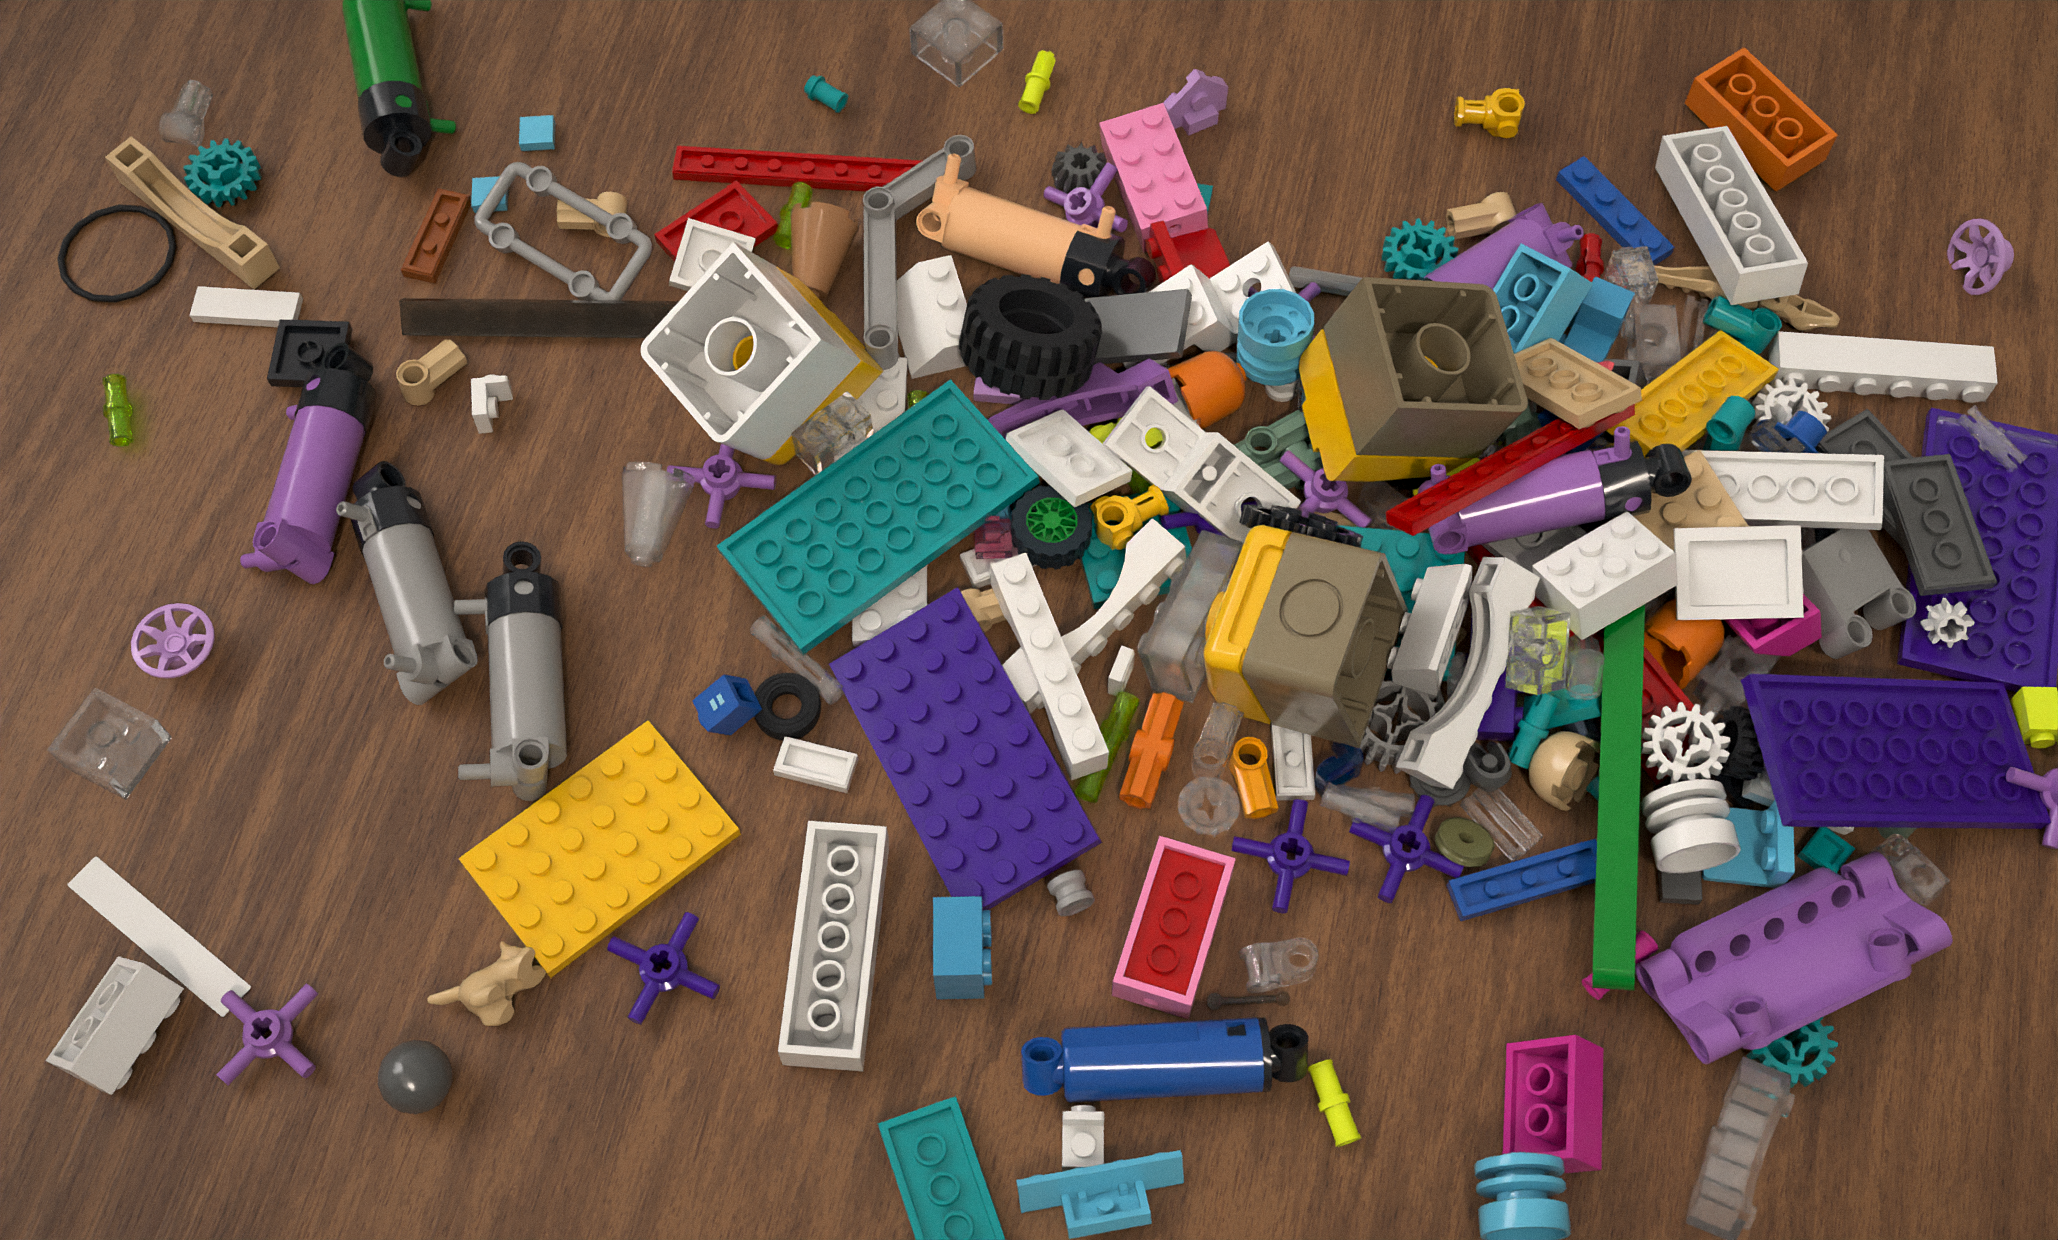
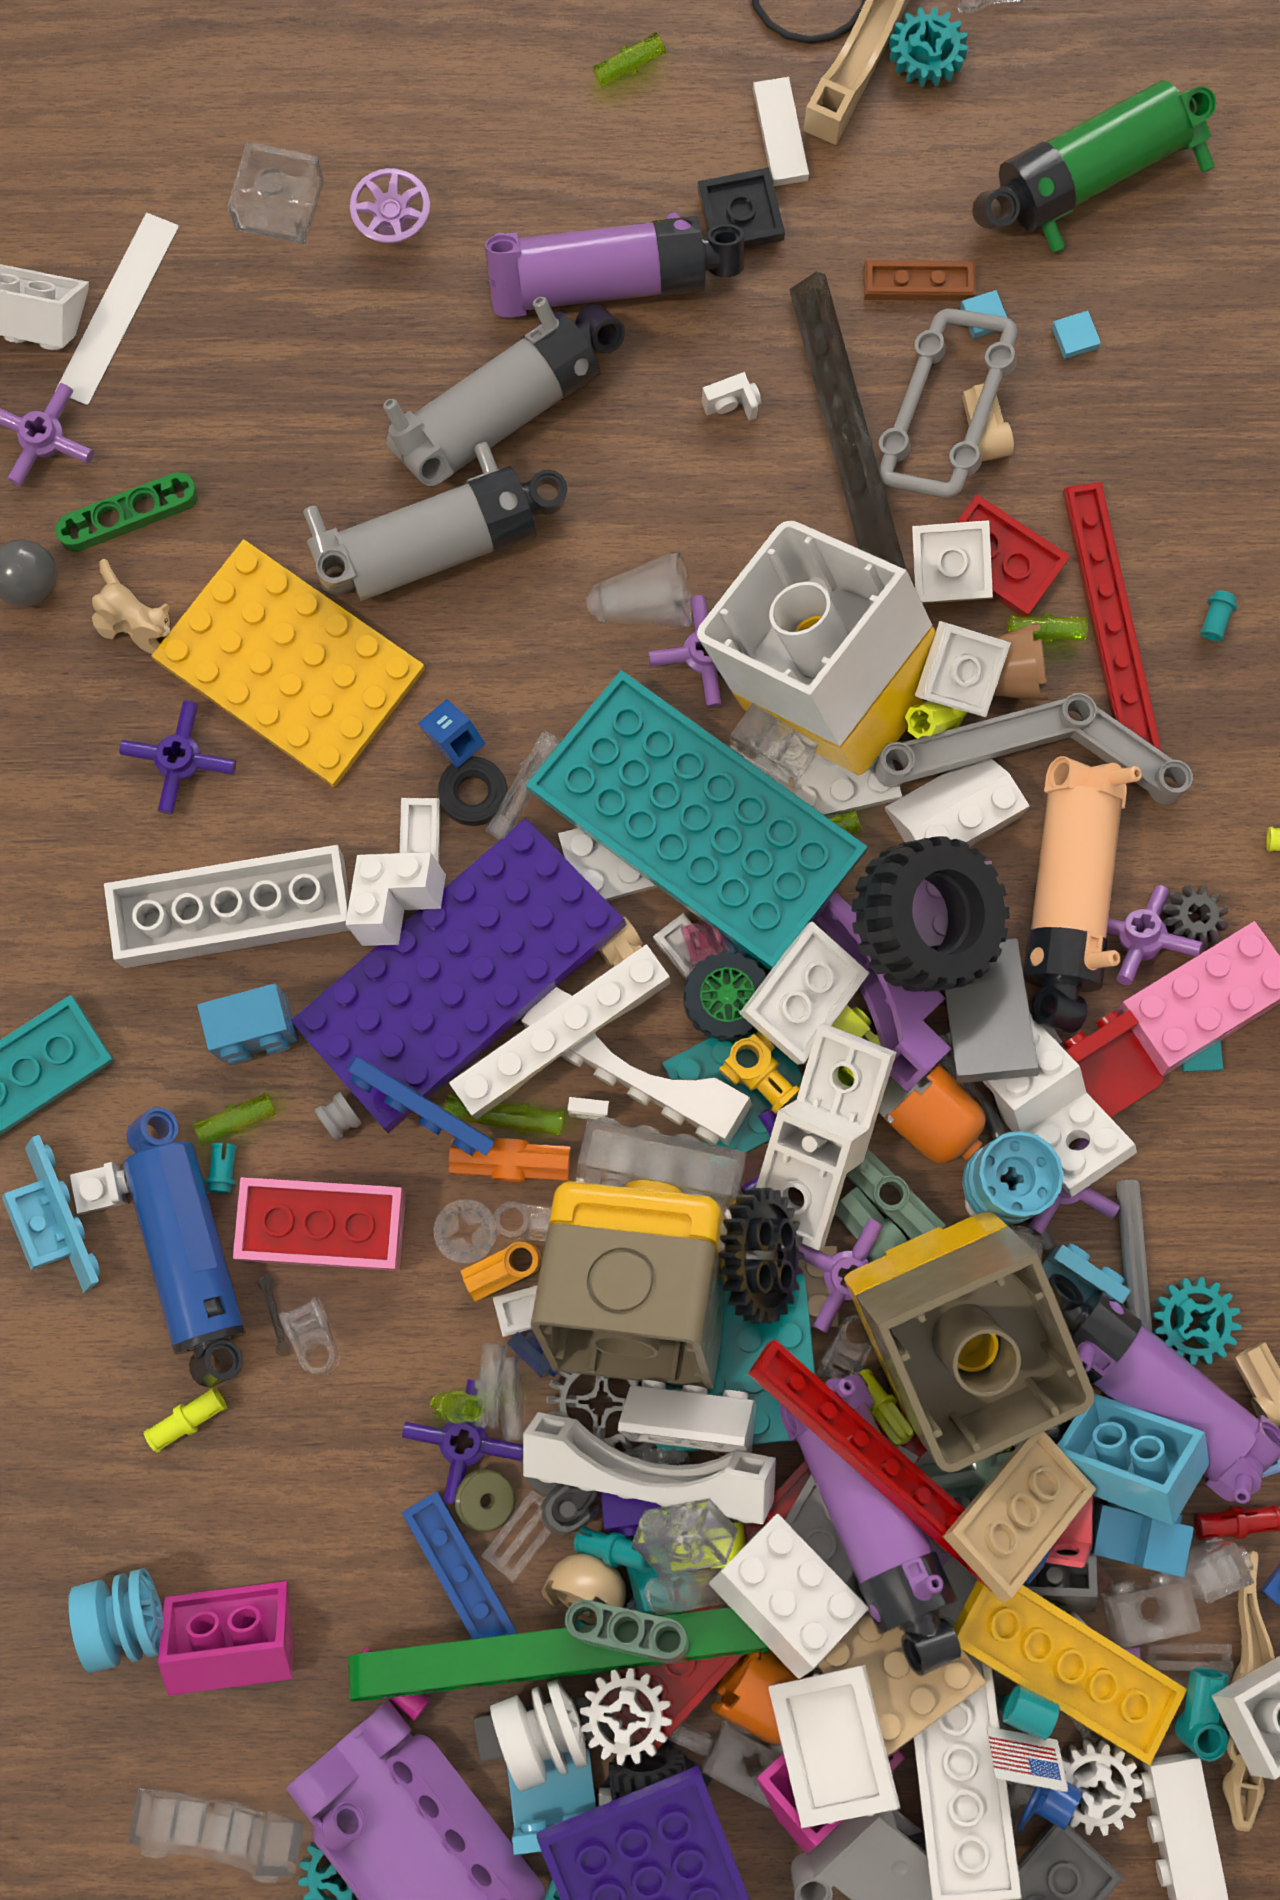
camera: 75 degrees right, 15 degrees up
(390, 967) = (125, 505): none -> green beam
(429, 372) = (755, 331): tan piece -> none
(817, 264) = (962, 669): none -> white tile
(845, 302) = (932, 719): none -> neon yellow piece
(861, 790) = (385, 888): none -> white brick
(1046, 992) = (234, 1118): none -> clear neon green pin
(1079, 801) = (433, 1116): none -> blue plate
(1091, 1014) = (221, 1171): none -> teal pin
(1277, 857) = (418, 1313): dark purple bar -> none
(1376, 837) = (457, 1407): none -> clear neon green pin
(1614, 696) = (608, 1622): none -> sand green beam
(1769, 428) = (1026, 1759): none -> sticker

